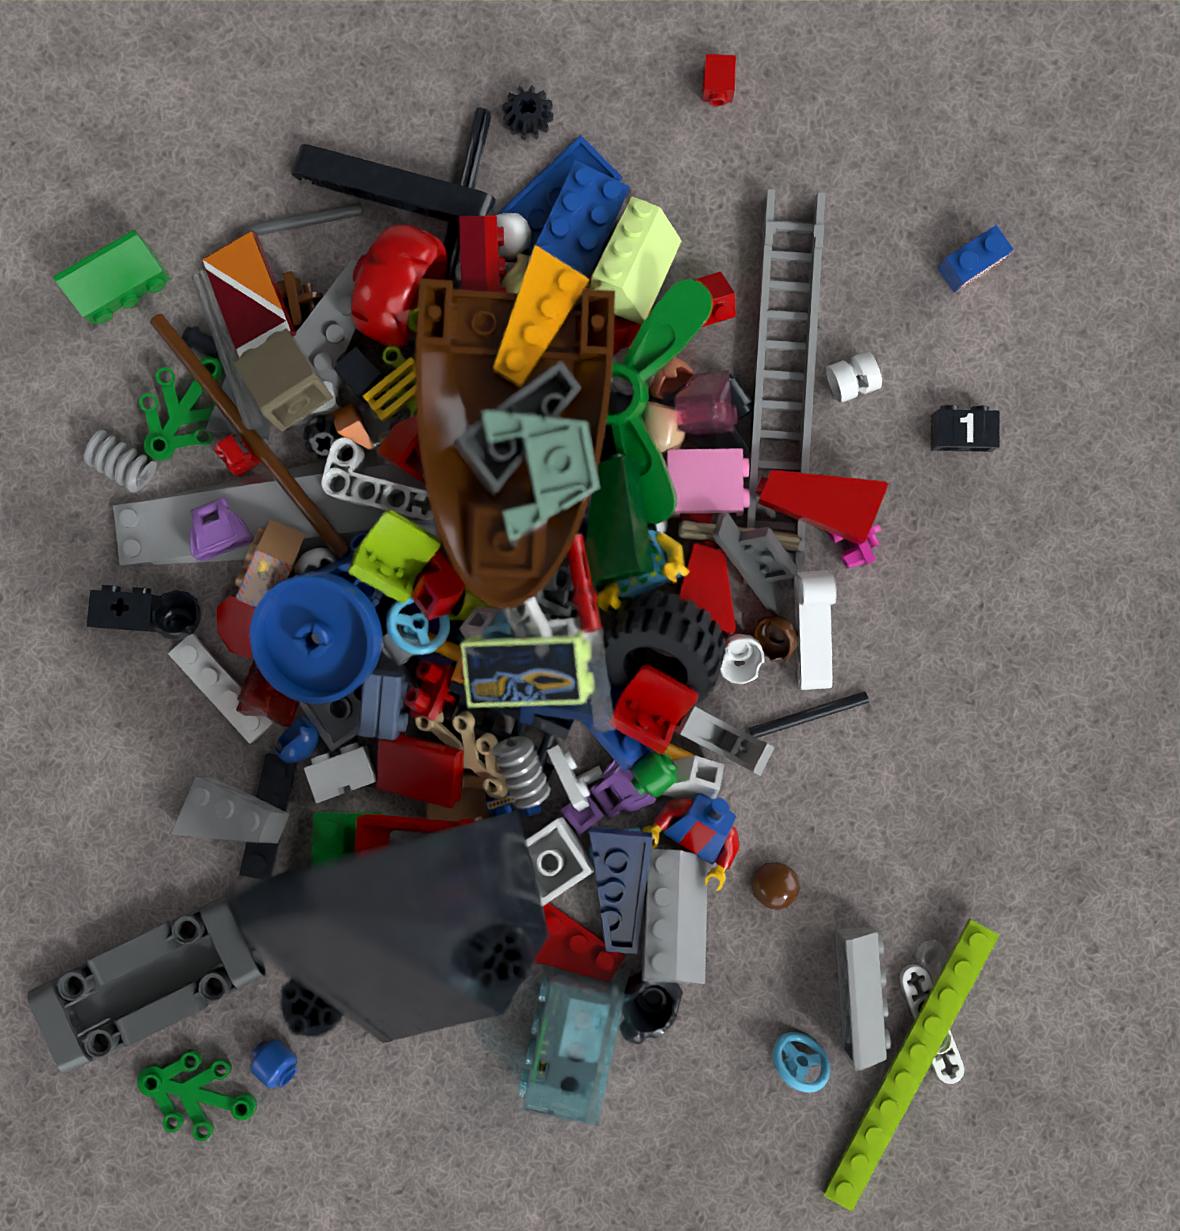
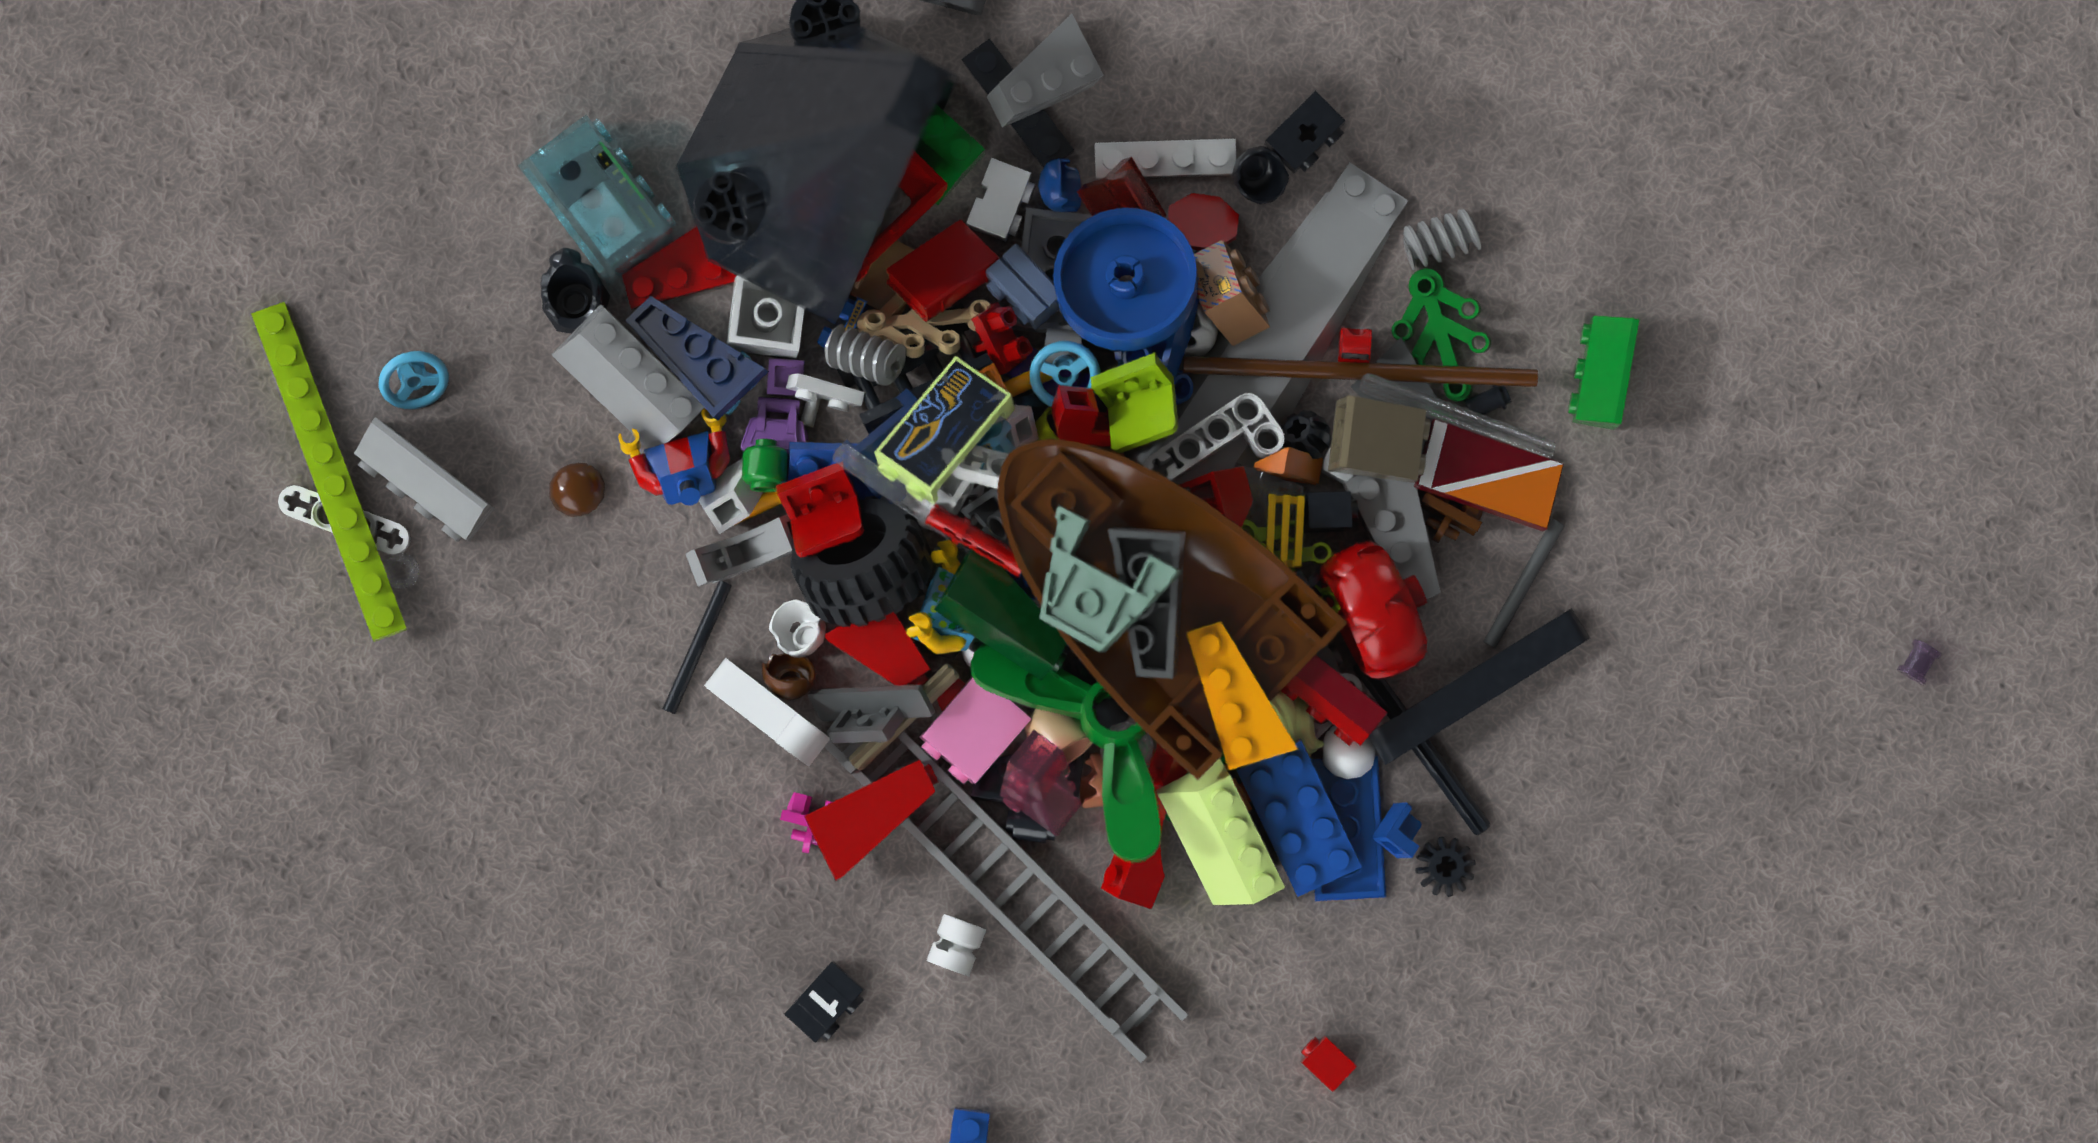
camera: 130 degrees right, 0 degrees up
(217, 535) = (1295, 271): medium lavender piece -> none
(533, 162) = (1398, 831): none -> blue panel

